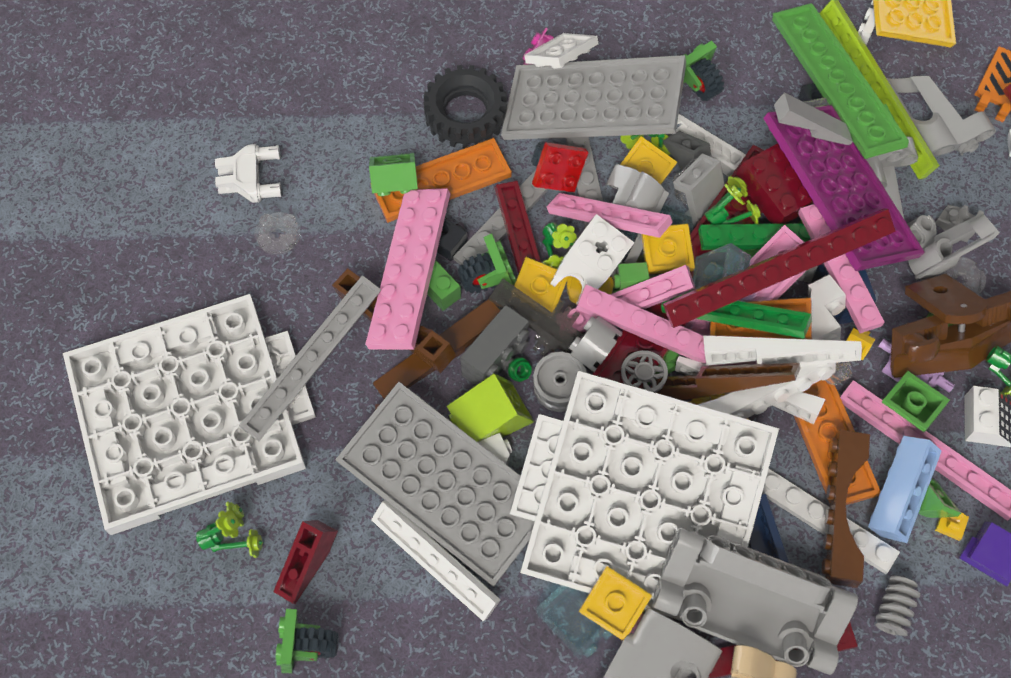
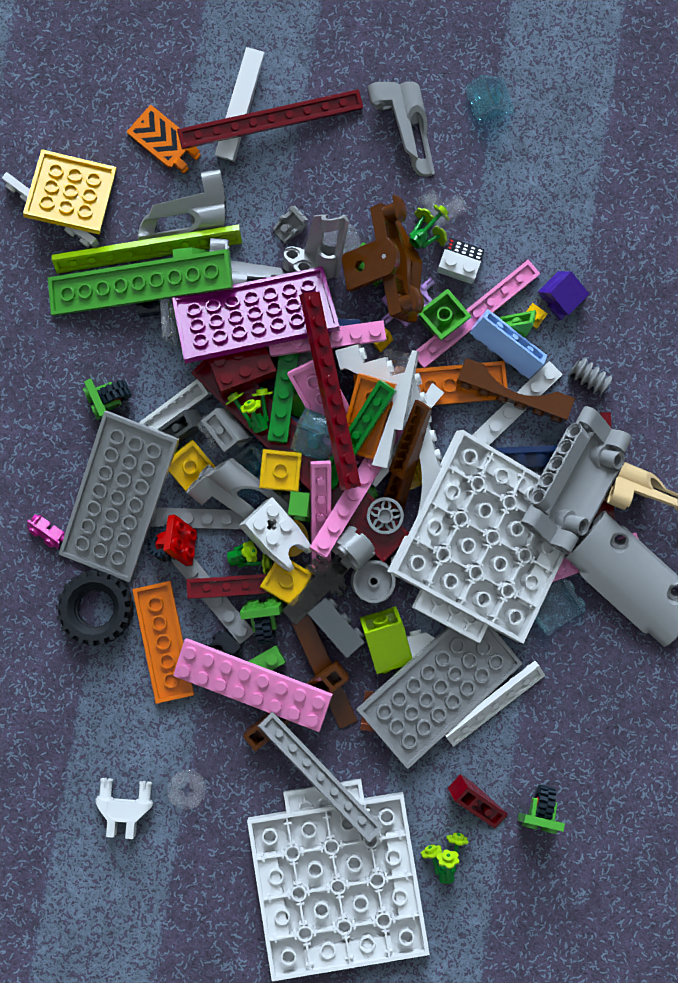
camera: 80 degrees left, 20 degrees up
(393, 174) = (154, 683): bright green slope -> none
(525, 369) = (352, 609): green plate -> none
(561, 50) = (56, 512): white plate -> none
(615, 603) = (557, 579): yellow tile -> none
(616, 215) = (238, 510): bright pink plate -> none
(821, 125) = (196, 323): light grey slope -> none

